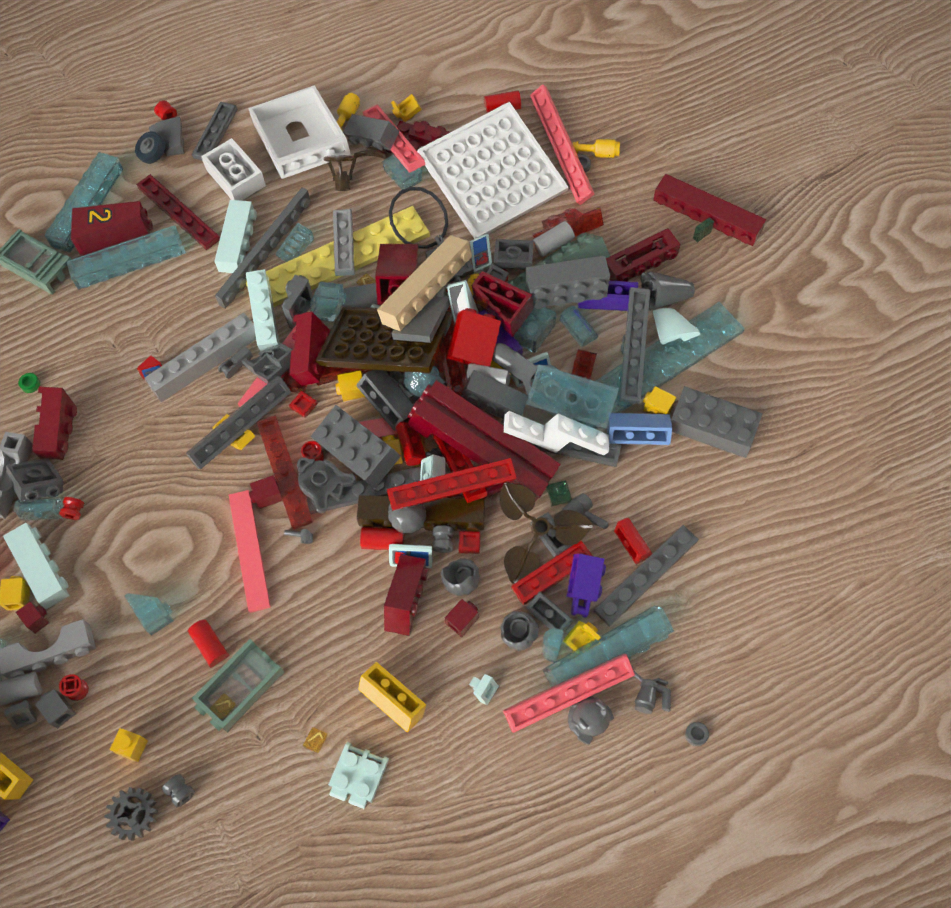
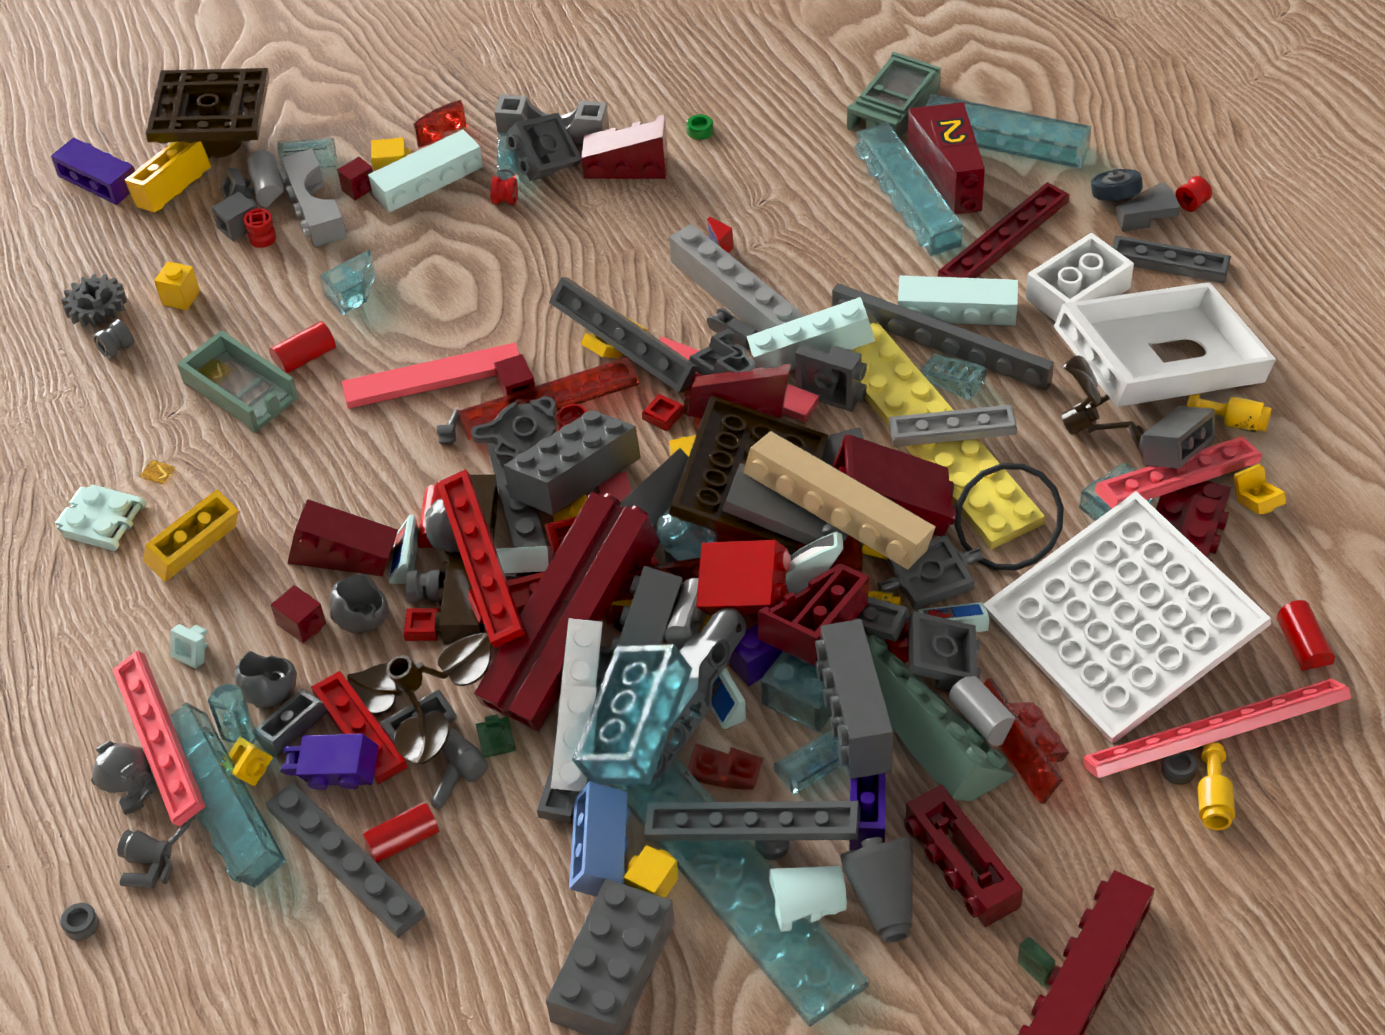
camera: 90 degrees right, 15 degrees down
(327, 300) = (829, 407): clear light blue brick -> none

